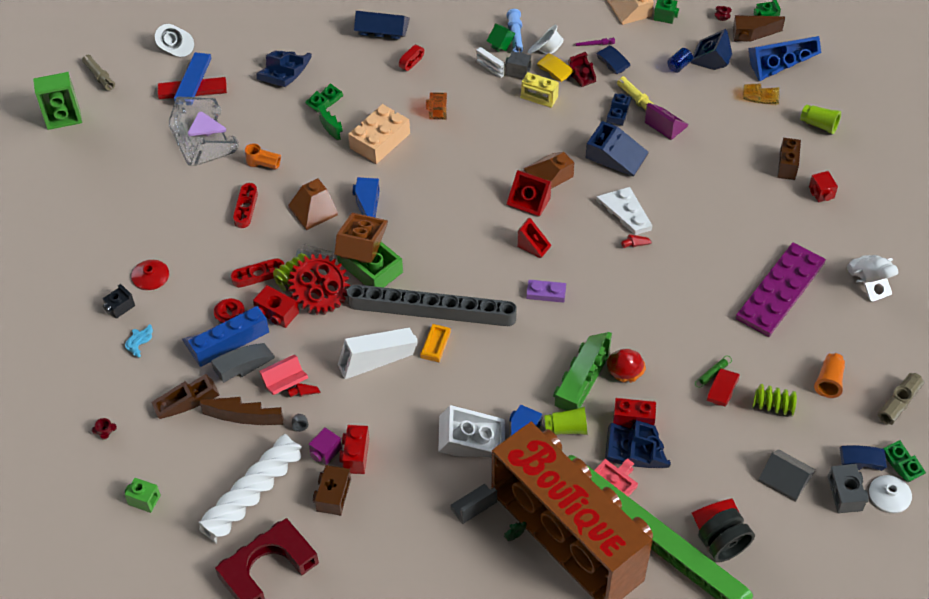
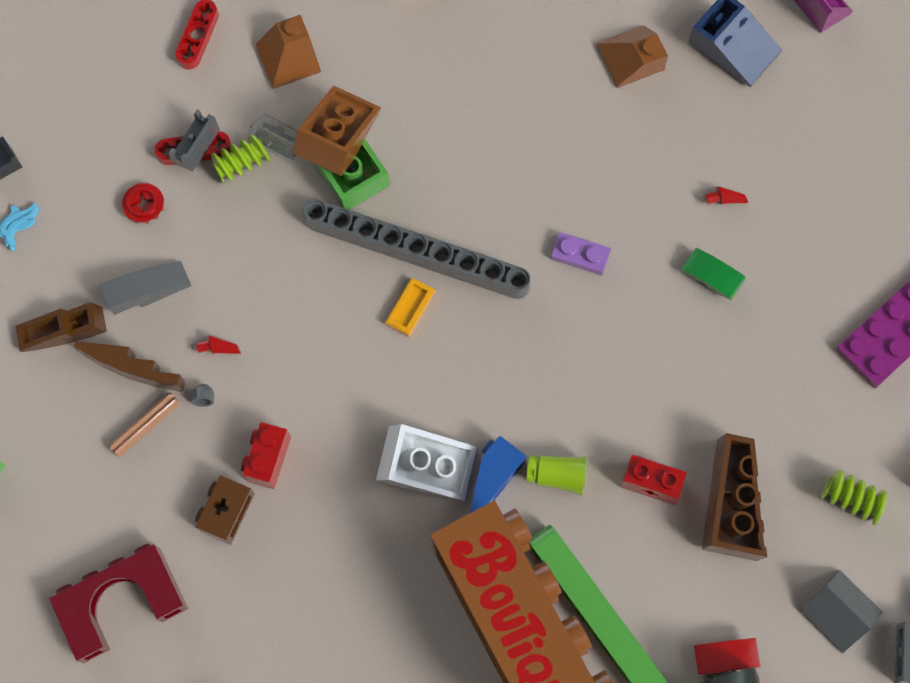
camera: 15 degrees right, 20 degrees up
(150, 274) = (54, 130): red dish -> none
(227, 336) = (121, 247): blue wedge -> none
(247, 489) = (112, 491): white piece -> none
(260, 265) = (195, 141): none -> dark grey hinge
(260, 448) = (144, 424): none -> nougat axle
(276, 306) = (199, 196): red brick -> none
(283, 375) = (194, 321): coral panel -> none
(303, 290) = (291, 179): red gear -> none
(325, 446) = (226, 444): magenta brick -> none
(367, 195) = (366, 51): blue slope -> none
(375, 350) = (325, 308): white slope -> none
(474, 503) = (407, 566): dark grey panel -> none
(516, 531) = (450, 623): dark green plant -> none
(529, 193) = (593, 92): red slope -> none
(532, 239) = (580, 169): red slope -> none
(583, 372) = (598, 400): bright green wedge -> none
(618, 476) = (605, 570): coral plate -> none
(626, 365) = (661, 399): red hair -> none
(627, 208) = (727, 140): white wing -> none
(637, 444) = (643, 525): dark blue slope -> none
(642, 285) = (714, 273): none -> green slope
(695, 424) = (734, 502): none -> reddish brown wedge
(711, 373) = (782, 429): bright green piece -> none
(723, 387) = (788, 460): red slope -> none

